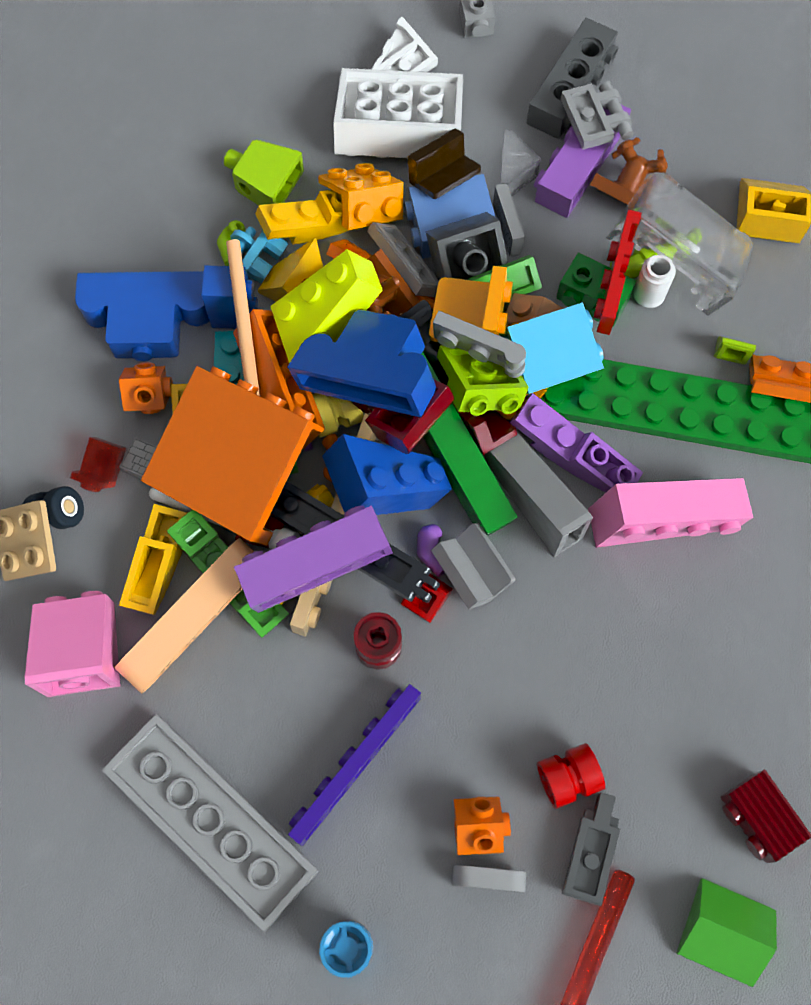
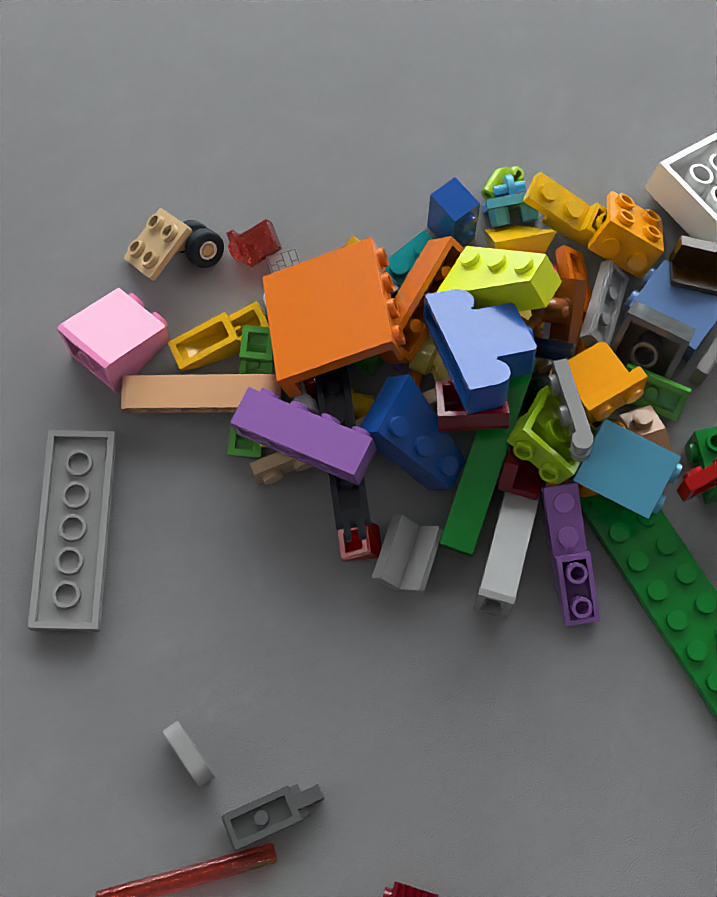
camera: 50 degrees right, 0 degrees up
(142, 309) = (390, 168): blue brick -> none
(145, 388) = (335, 221): orange brick -> none
(242, 313) = (440, 234): light nougat bar -> none
(265, 171) = (580, 155): lime torso -> none
(346, 949) = (59, 691): dark azure wheel -> none
(353, 764) = (191, 592): dark purple plate -> none
(378, 640) = (292, 533): dark red wheel -> none
(426, 540) = (401, 505): medium lavender arm -> none
(480, 825) = (219, 715): orange brick -> none
(571, 775) = (310, 751): red wheel -> none
(669, 510) = (585, 665): bright pink wedge -> none

